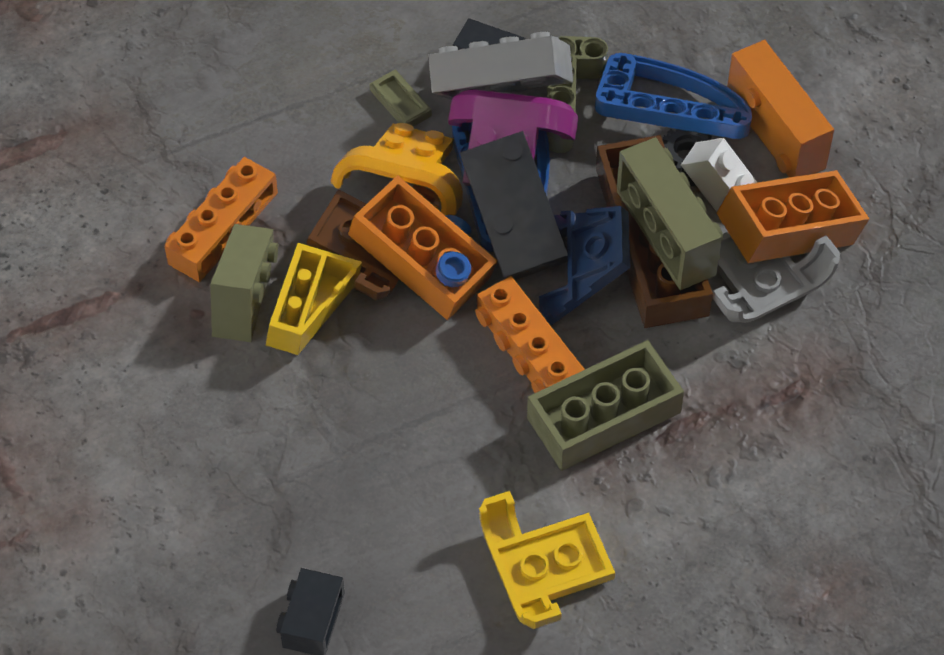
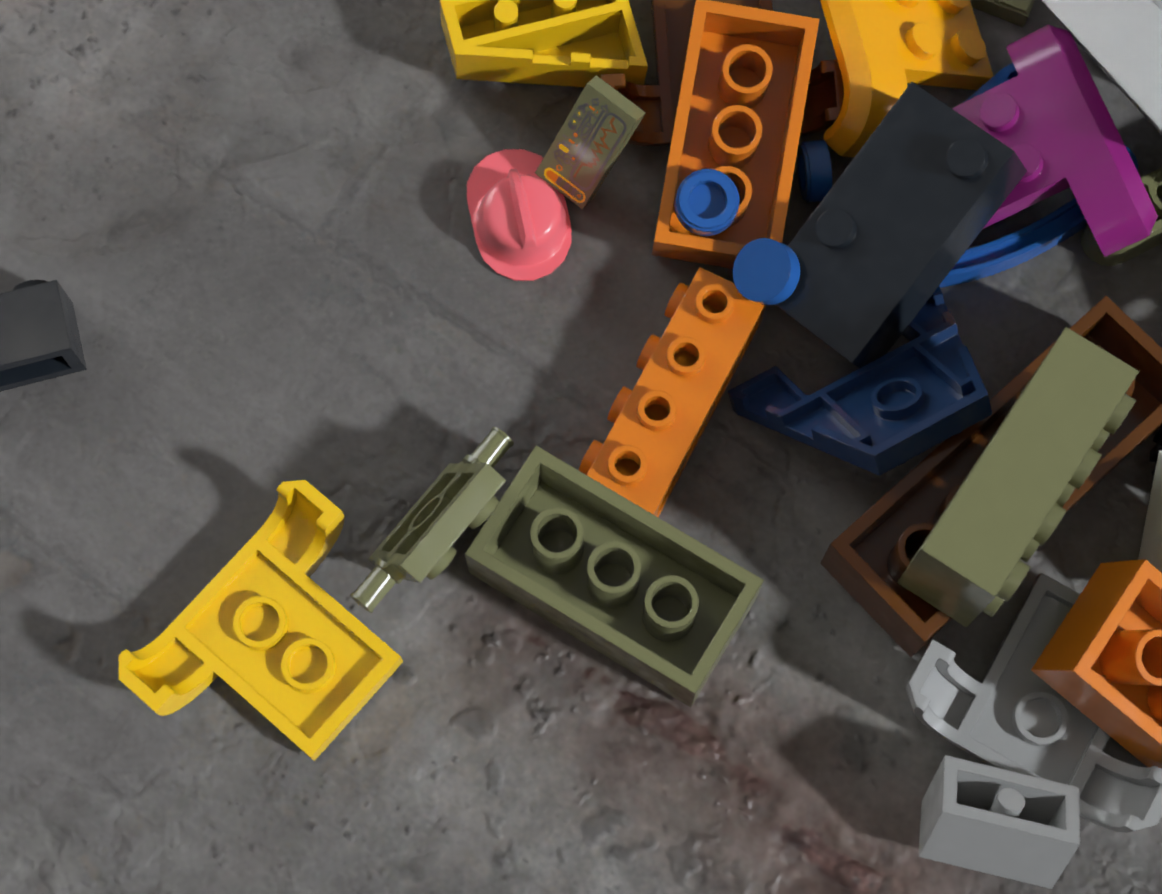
camera: 60 degrees right, 15 degrees up
(383, 307) = (589, 142): none -> olive tile
(389, 363) = (517, 216): none -> coral piece
(502, 264) = (766, 271): none -> blue tile
(534, 460) = (425, 535): none -> olive plate
(804, 315) = (999, 822): none -> light grey brick

